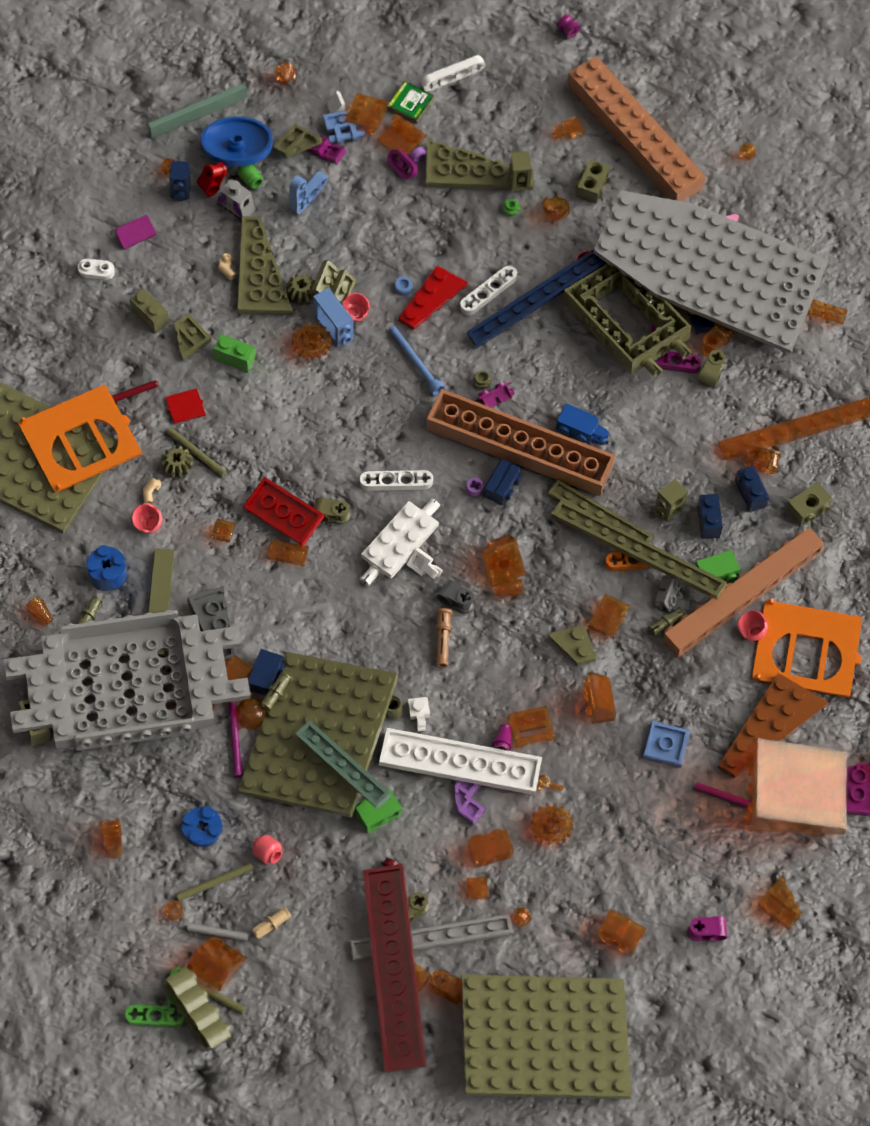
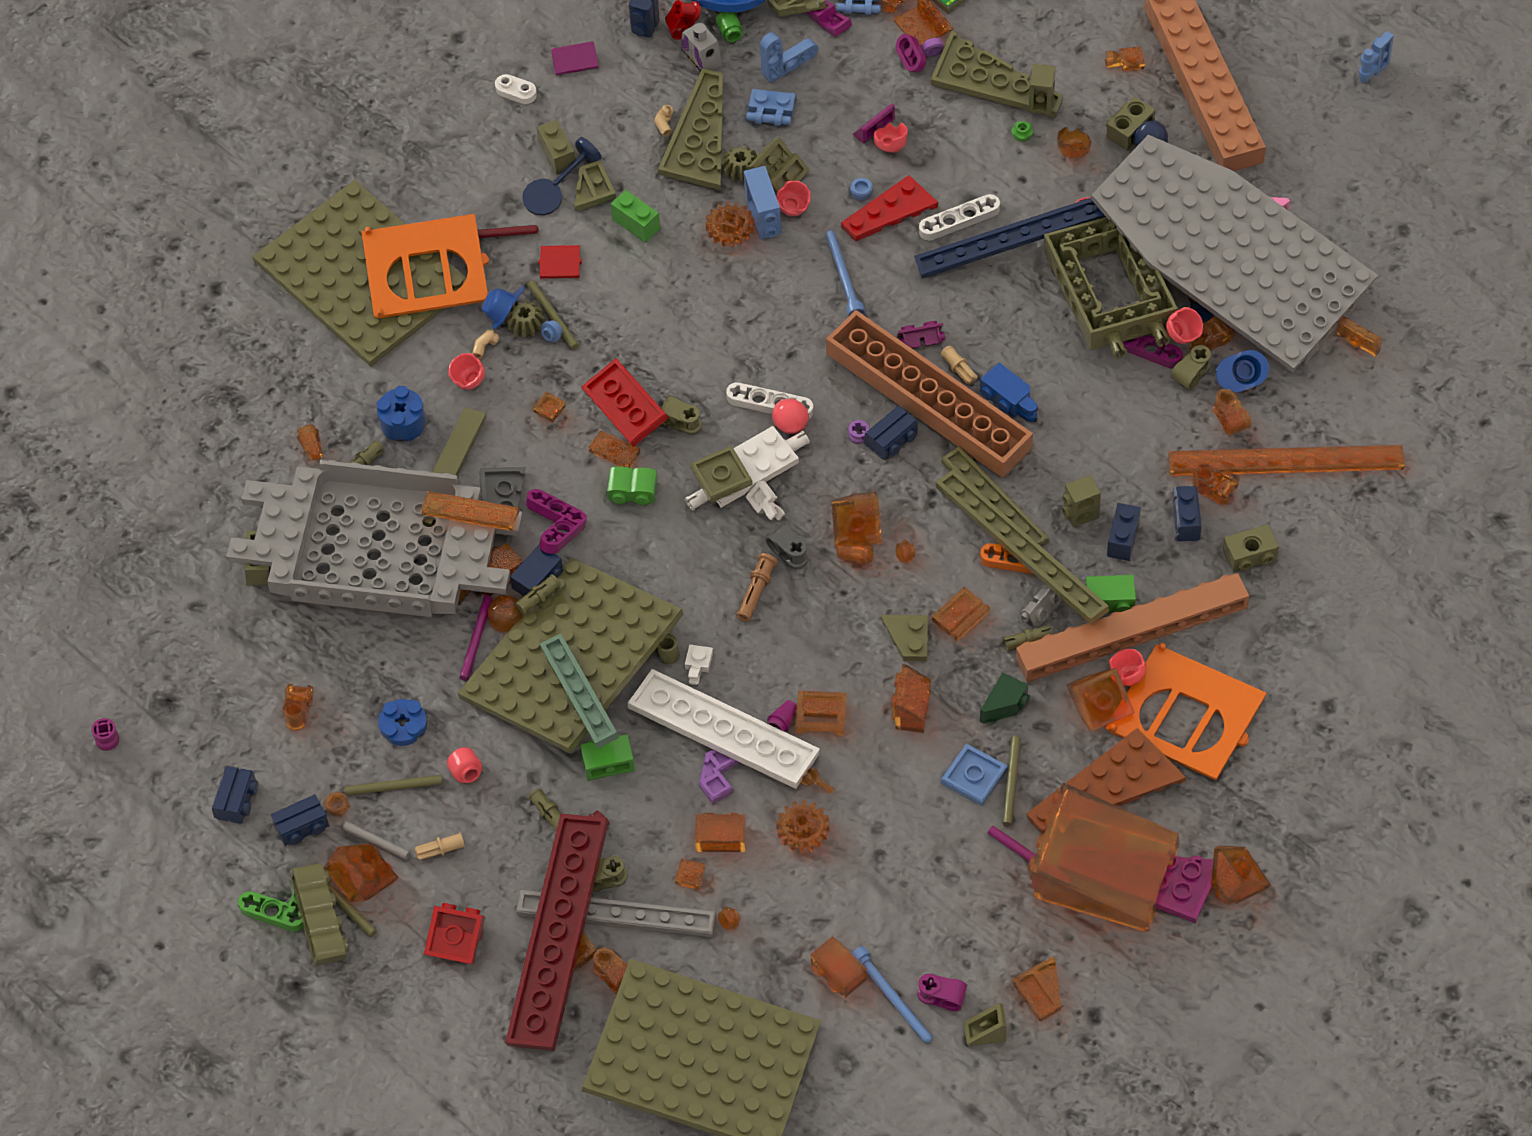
camera: 25 degrees right, 5 degrees down
(88, 927) = (234, 795): none -> dark blue brick
(151, 934) = (300, 820): none -> dark blue brick
(153, 354) = (544, 195): none -> dark blue piece
(155, 455) = (498, 305): none -> blue piece
(198, 637) = (470, 510): none -> clear orange tile
(201, 466) = (551, 331): none -> medium blue plate
(272, 624) = (568, 519): none -> magenta beam
(307, 231) = (771, 103): none -> medium blue plate
(311, 992) = (454, 933): none -> red plate
(314, 579) = (632, 485): none -> bright green brick
(346, 867) = (547, 809): none -> olive pin
(384, 552) = (721, 474): none -> olive tile
(394, 229) = (879, 121): none -> magenta slope
(413, 238) = (891, 138): none -> coral hair
(418, 488) = (790, 416): none -> coral hair
(482, 379) = (913, 314): olive plate -> none
(533, 412) = (959, 365): none -> tan axle
(547, 576) = (905, 551): none -> clear orange plate
(611, 188) = (1152, 128): none -> dark blue hair
(636, 917) = (863, 957): none -> medium blue piece
(669, 676) = (1005, 699): none -> dark green slope
(696, 741) = (1011, 781): none -> olive bar
(699, 338) = (1184, 325): none -> coral hair
(741, 656) = (1100, 698): none -> clear orange slope
(747, 151) = (1332, 131): clear orange plate -> none
(752, 947) = (986, 1027): none -> olive slope
(753, 362) = (1242, 371): none -> blue piece
(756, 399) = (1230, 412): none -> clear orange piece
(761, 83) = (1377, 59): none -> medium blue plate

